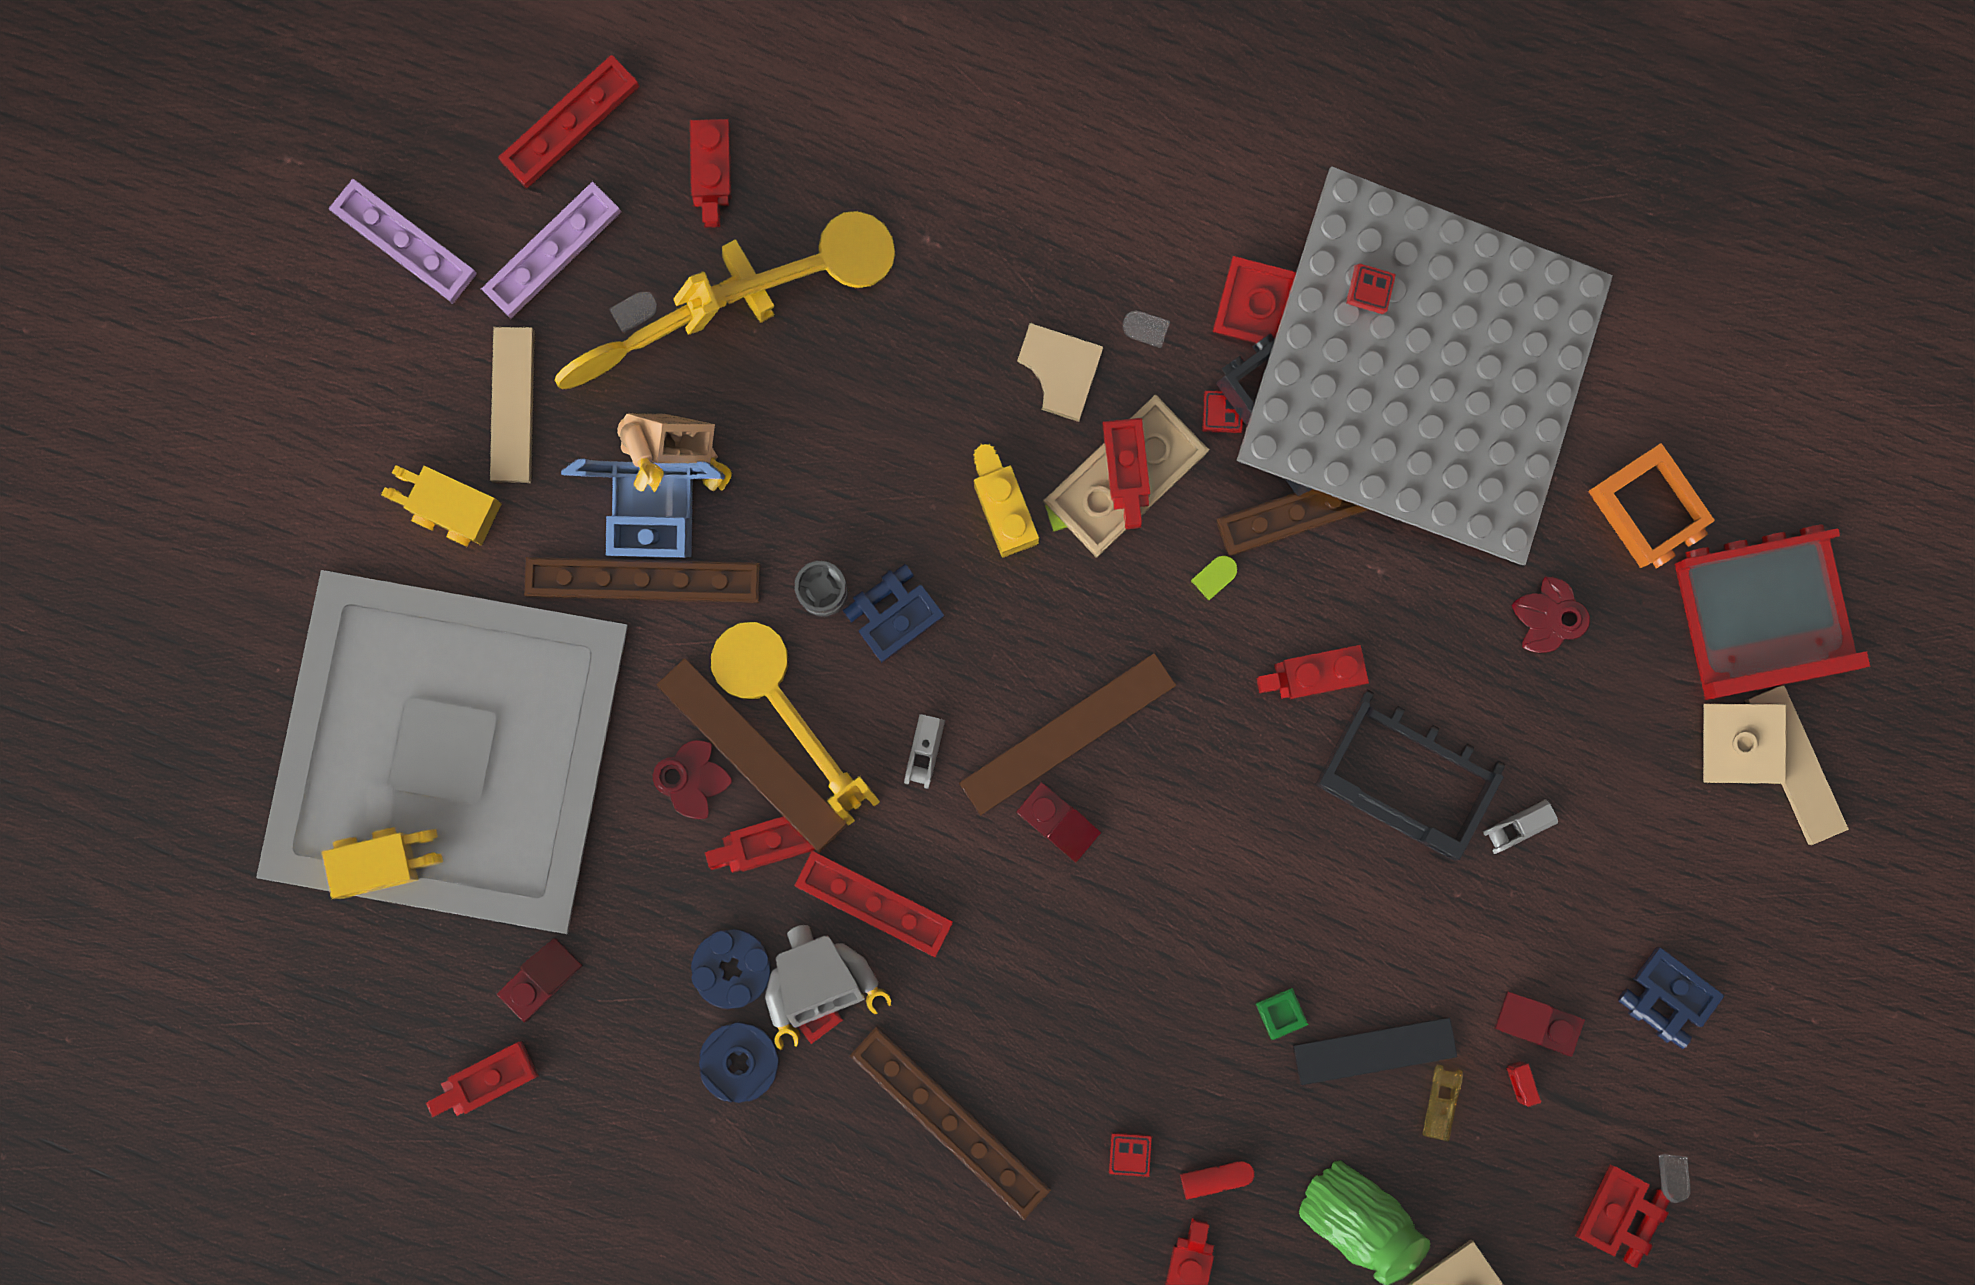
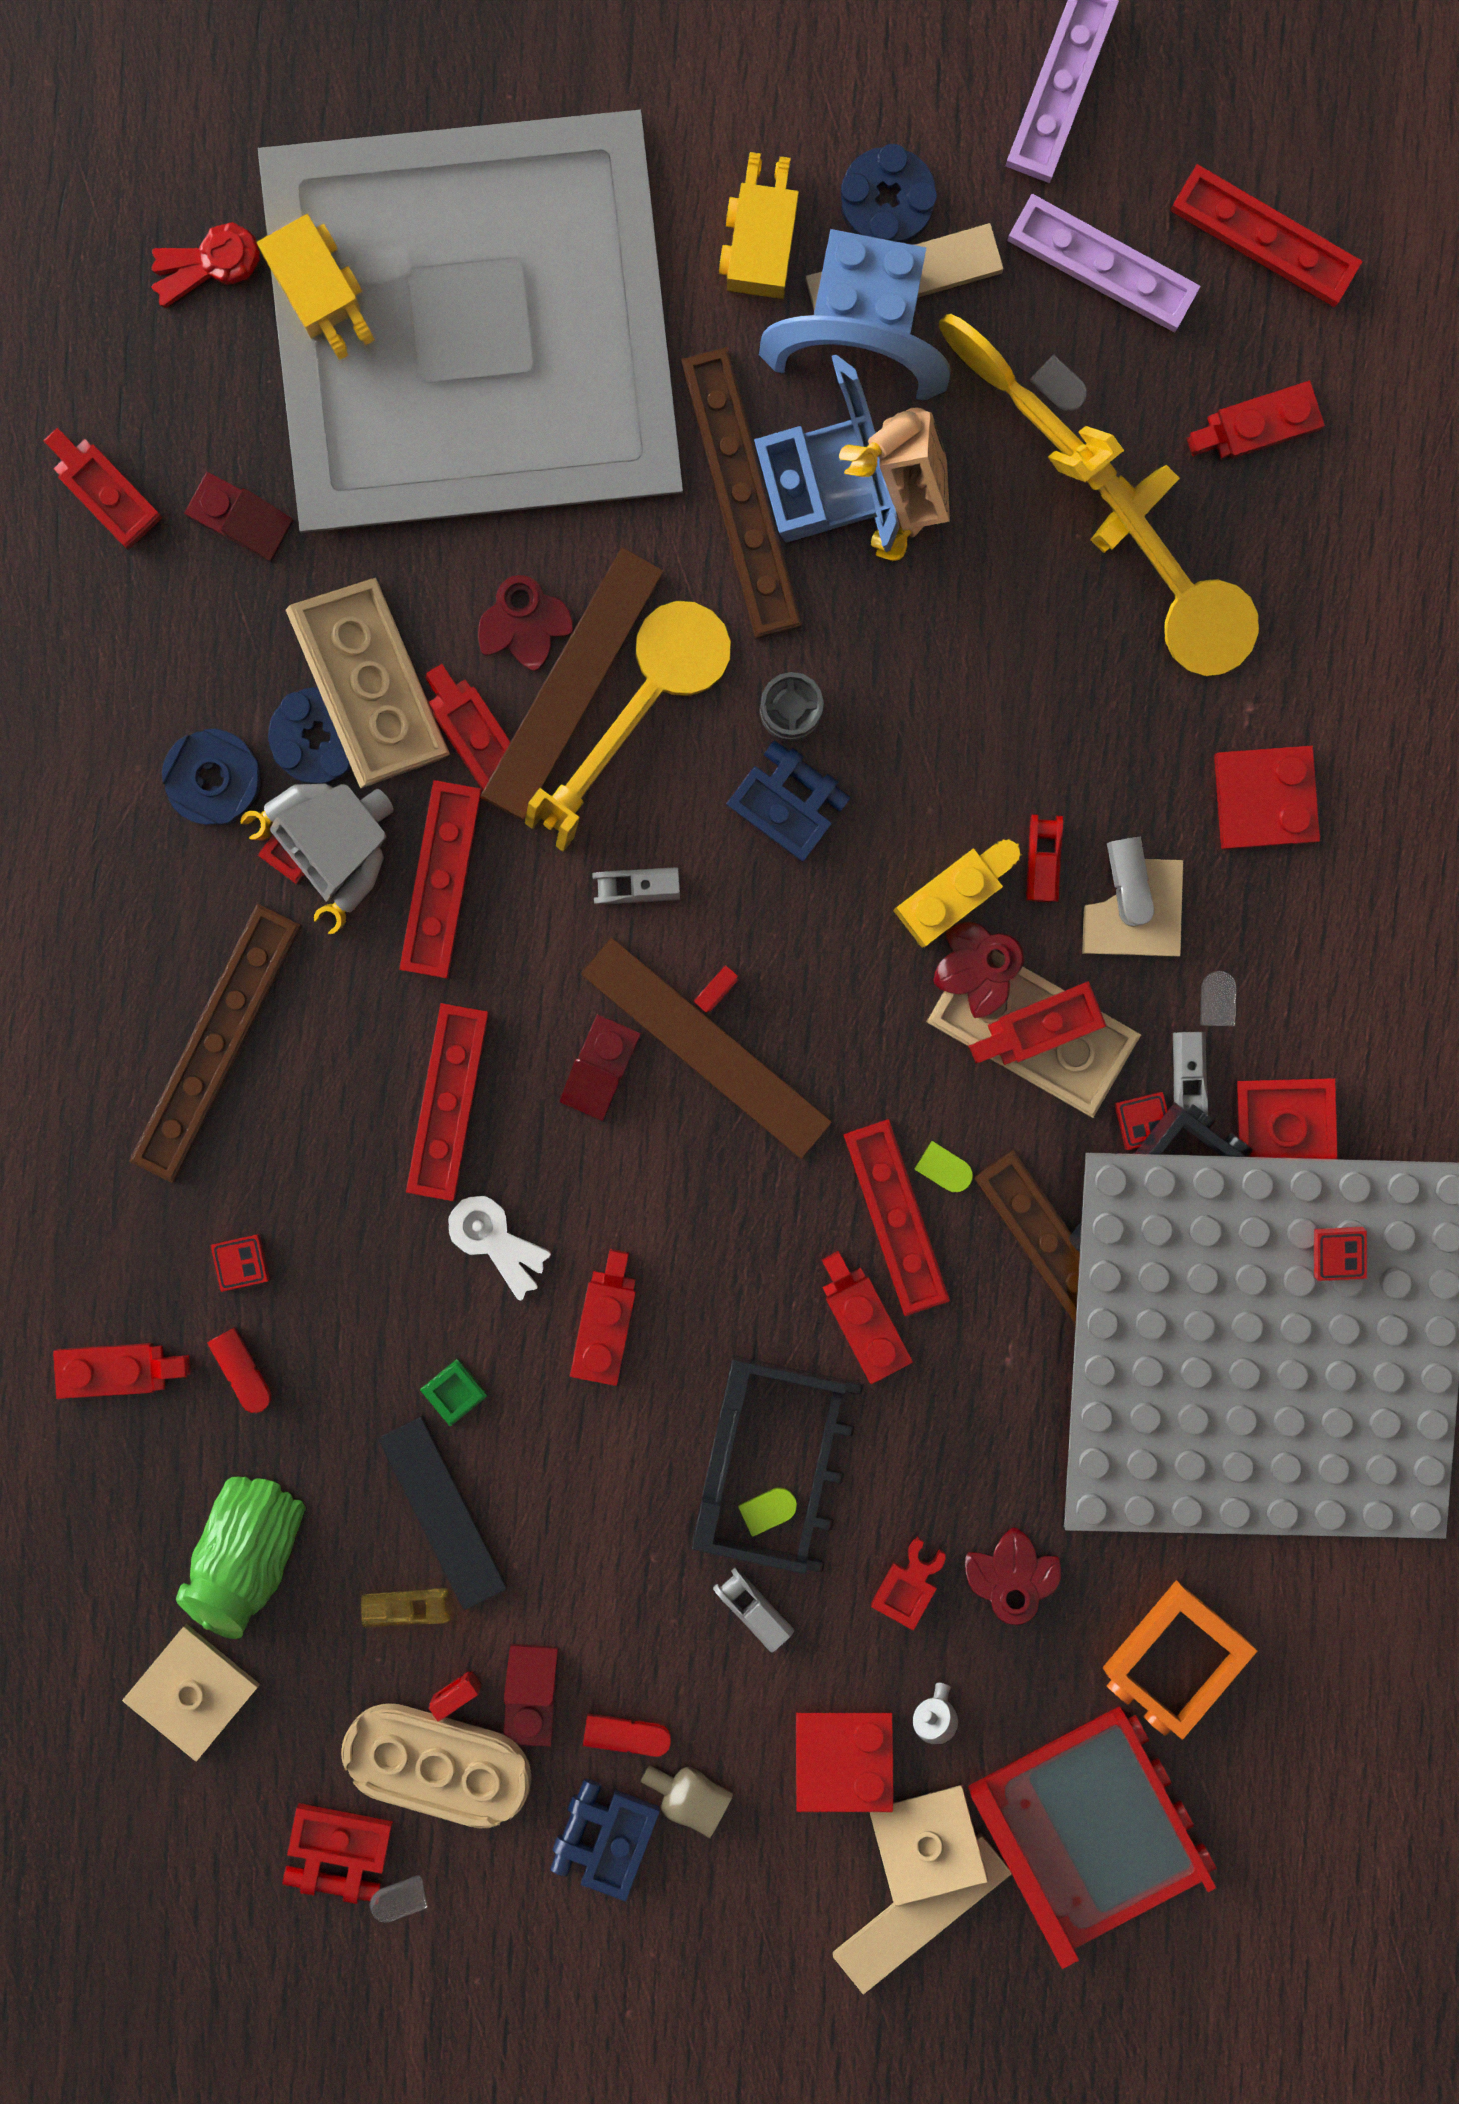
camera: 70 degrees right, 5 degrees up
(331, 928) = (225, 254): none -> red piece
(427, 390) = (890, 168): none -> dark blue plate
(526, 438) = (864, 303): none -> medium blue piece
(701, 915) = (367, 682): none -> tan tile
(1000, 245) = (1266, 797): none -> red plate
(1003, 431) = (1044, 867): none -> red bar
(1024, 712) = (716, 989): none -> red tile
(1033, 367) = (1131, 880): none -> light grey bar
(1050, 950) = (447, 1102): none -> red plate
(1067, 508) = (972, 969): none -> dark red plate
(1157, 953) = (481, 1228): none -> white piece
(1190, 364) = (1190, 1064): none -> light grey bar
(1243, 625) = (896, 1217): none -> red tile
(1260, 877) = (604, 1323): none -> red hinge
(1444, 792) = (768, 1510): none -> lime piece
(1539, 702) = (905, 1590): none -> red plate
(1575, 1115) = (436, 1766): none -> tan tile
(1592, 957) = (626, 1736): none -> red bar
(1645, 708) = (936, 1718): none -> piece
(1656, 921) = (689, 1798): none -> dark tan piece
(1660, 790) = (844, 1762): none -> red plate

